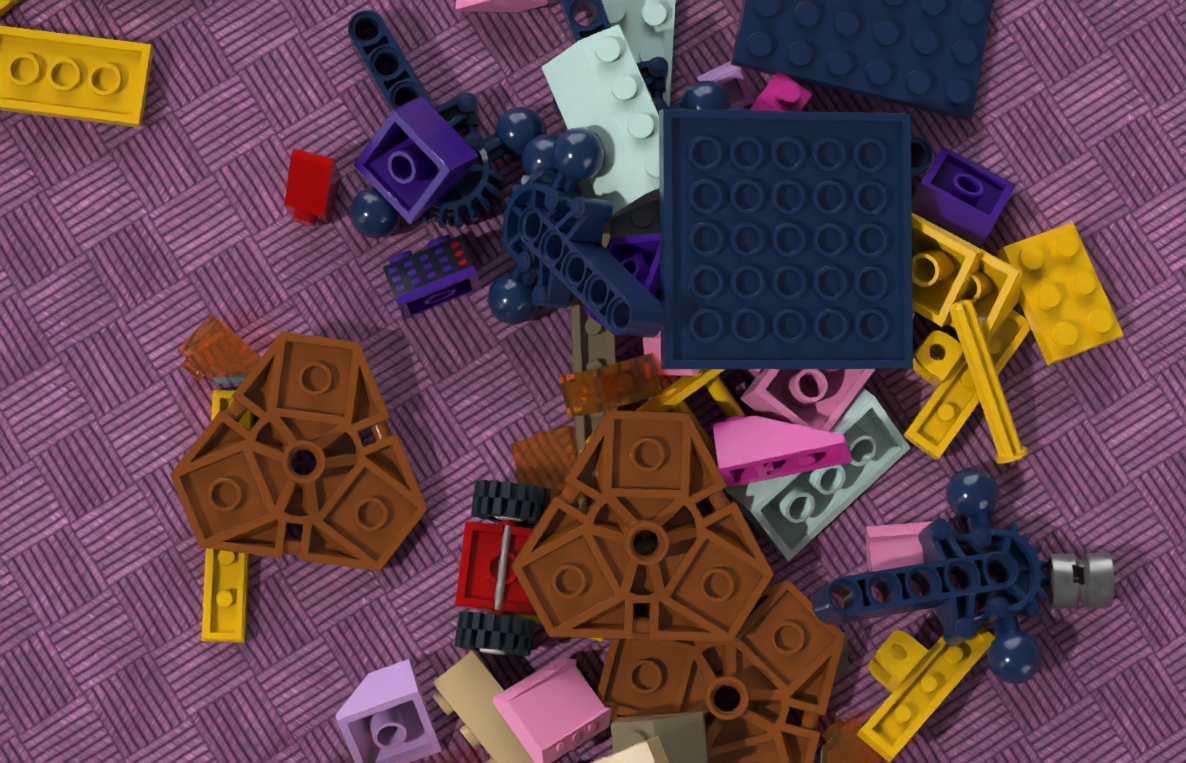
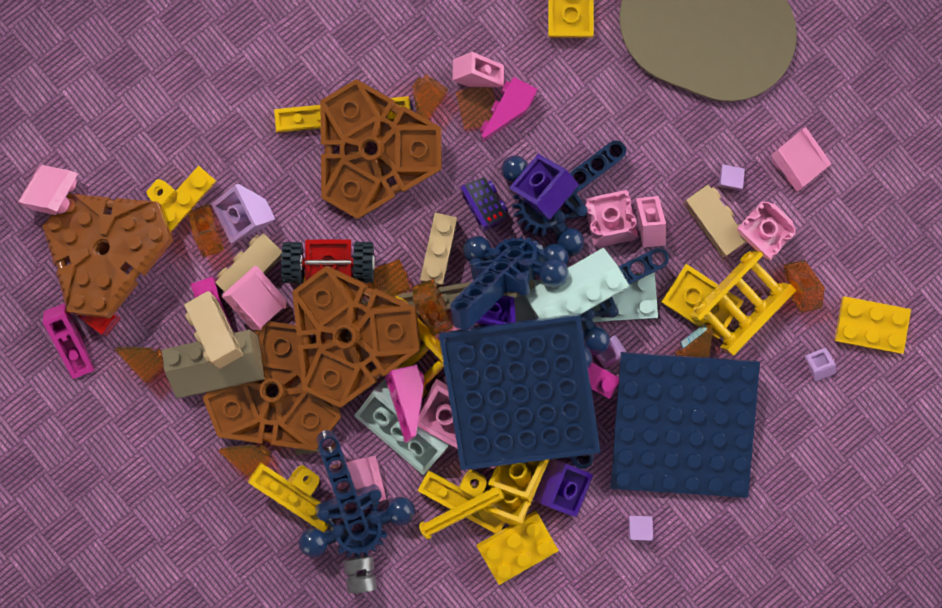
camera: 75 degrees right, 5 degrees up
(185, 258) = (477, 71): none -> bright pink slope
(248, 269) = (475, 105): none -> clear orange piece
(251, 198) = (512, 106): none -> dark pink slope
(311, 187) = (523, 132): red slope -> none
(487, 55) = (611, 219): none -> bright pink slope
(502, 367) = (439, 248): none -> tan brick
(1047, 74) = (640, 528): none -> lavender slope

